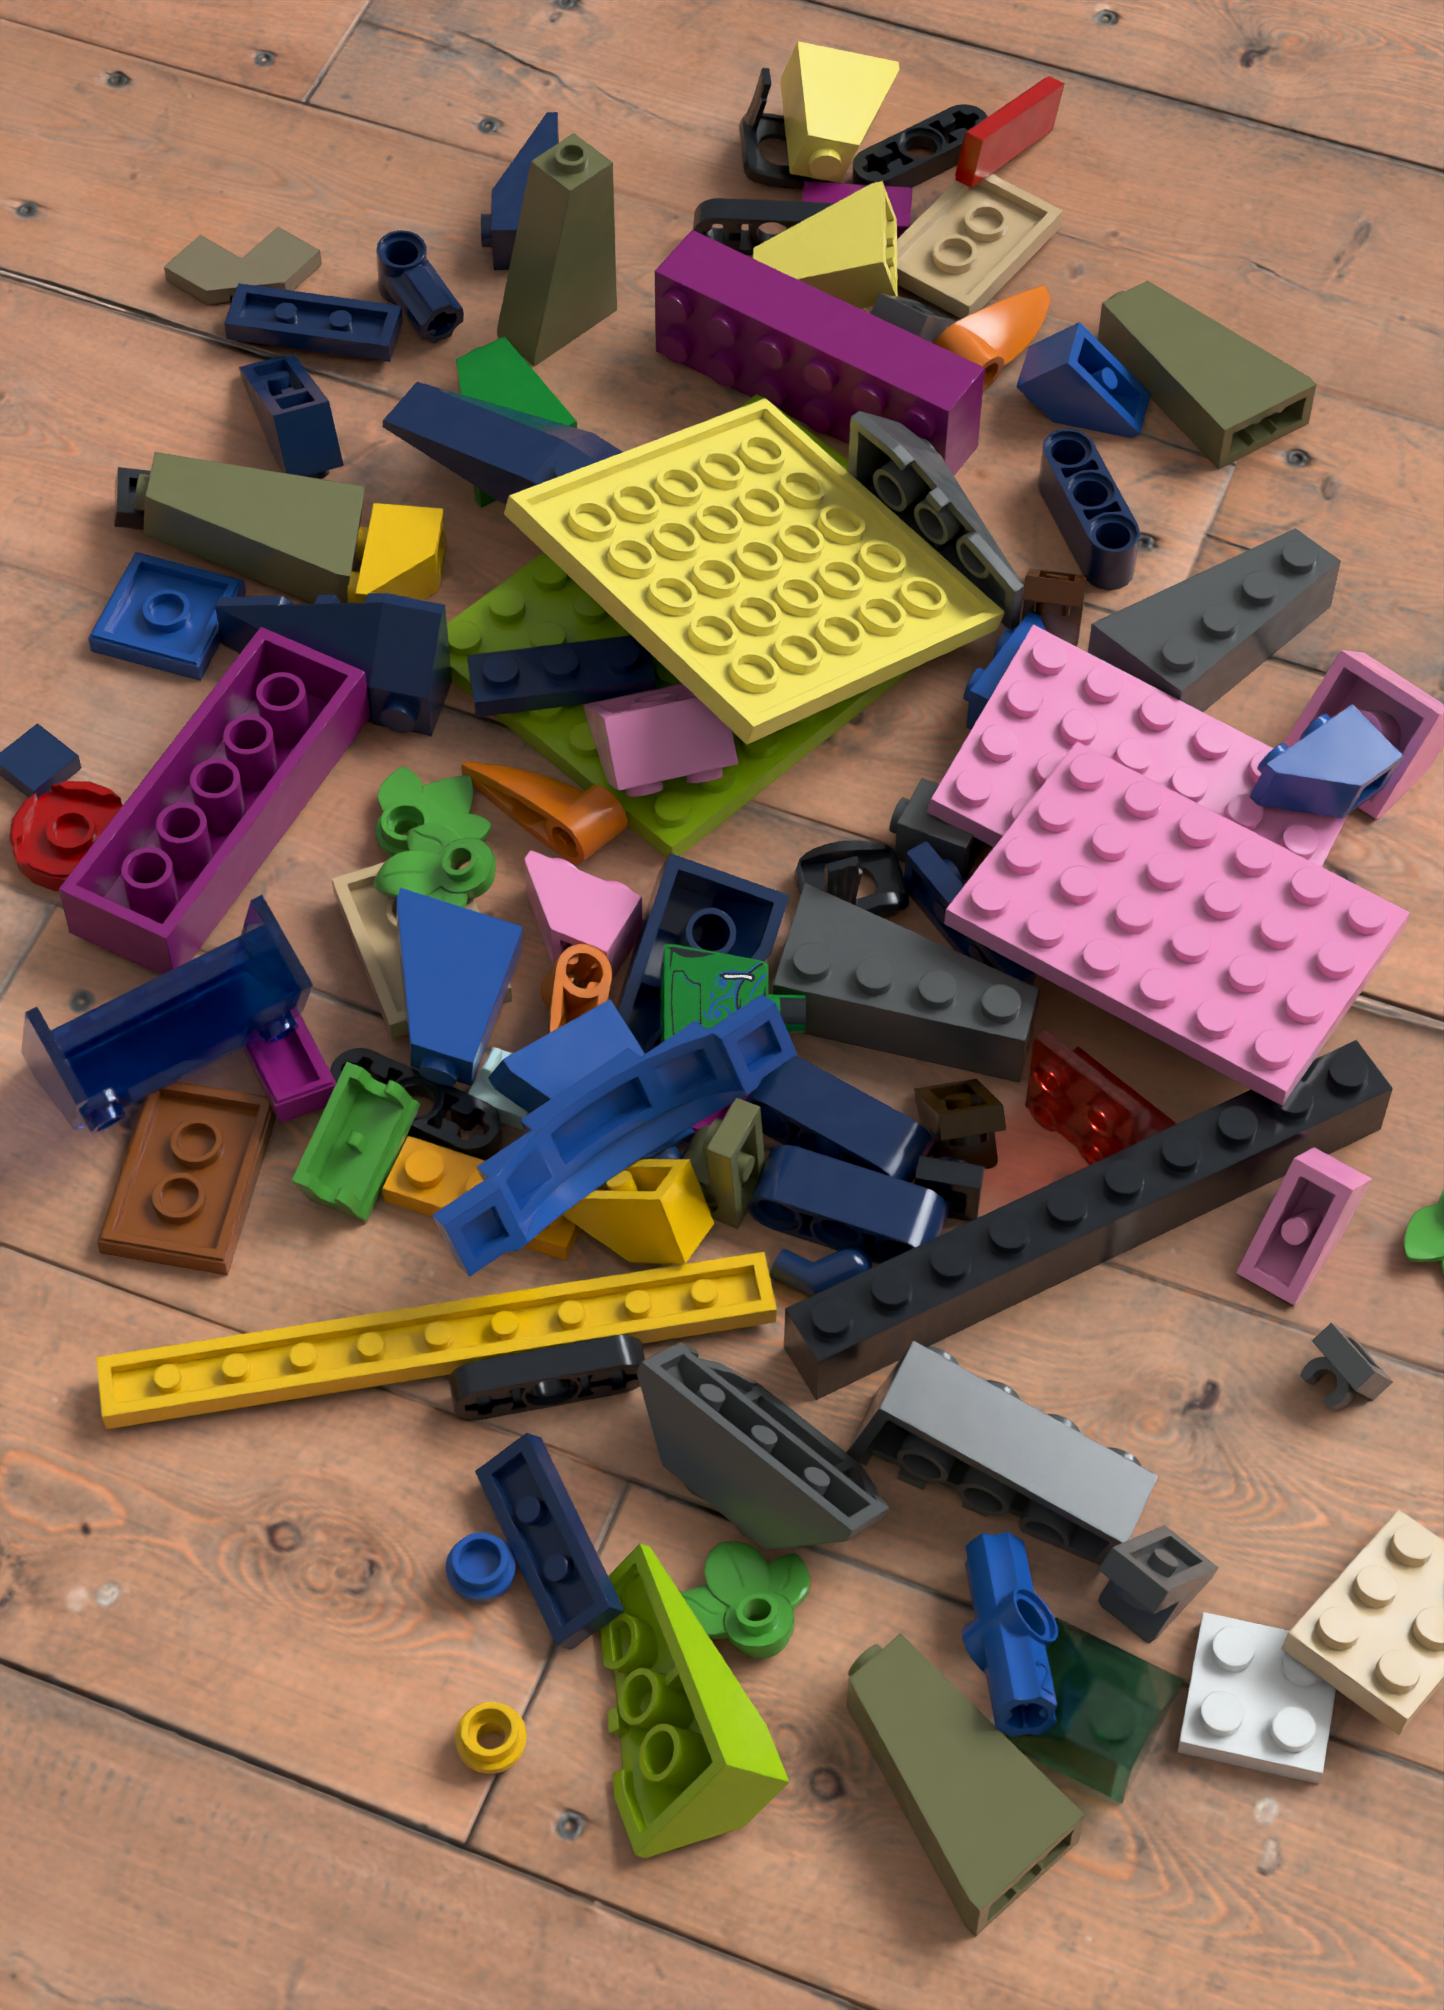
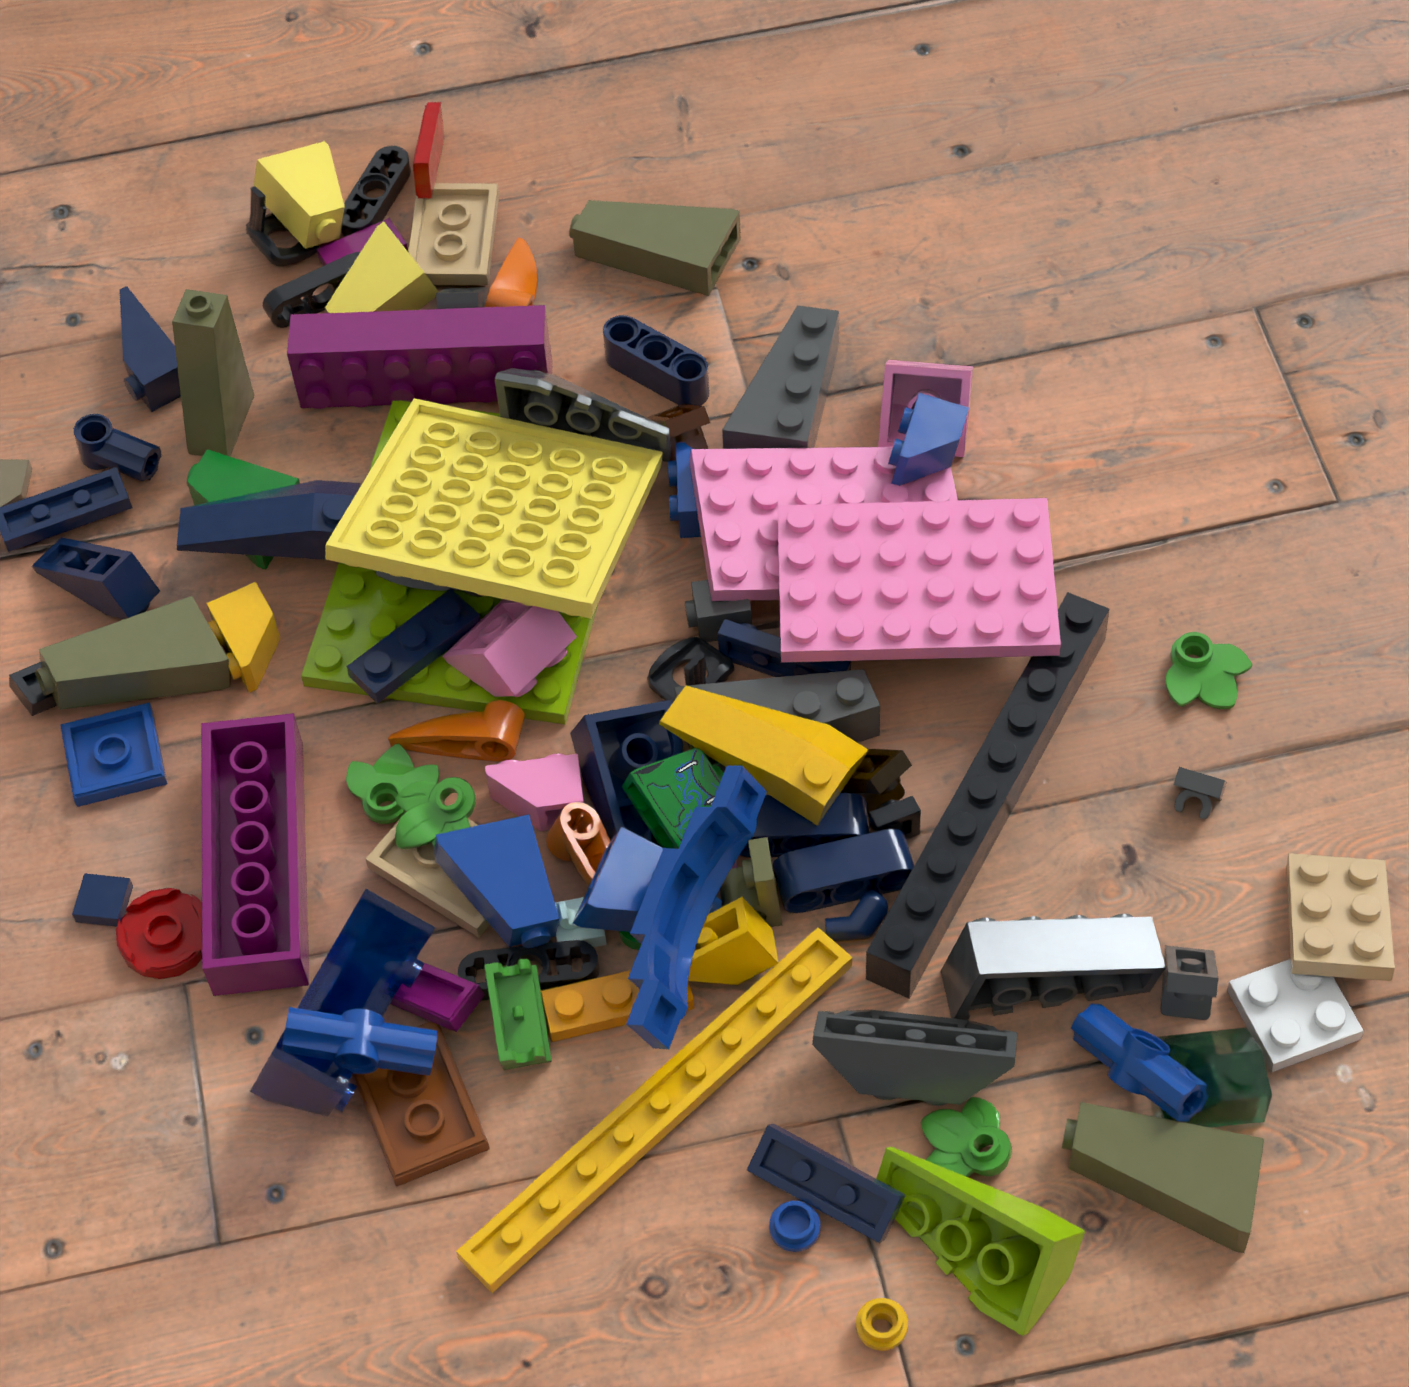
camera: 30 degrees left, 0 degrees up
(160, 1066) = (359, 1041): none -> blue piece
(388, 636) = (291, 683): dark blue wedge -> none
(546, 1377) = (746, 1085): black beam -> none
(858, 1021) = (788, 755): none -> yellow wedge
(1083, 384) = (592, 286): blue slope -> none
(1087, 1101) = (940, 724): clear red bracket -> none
(1303, 1224) = (1112, 720): bright pink slope -> none

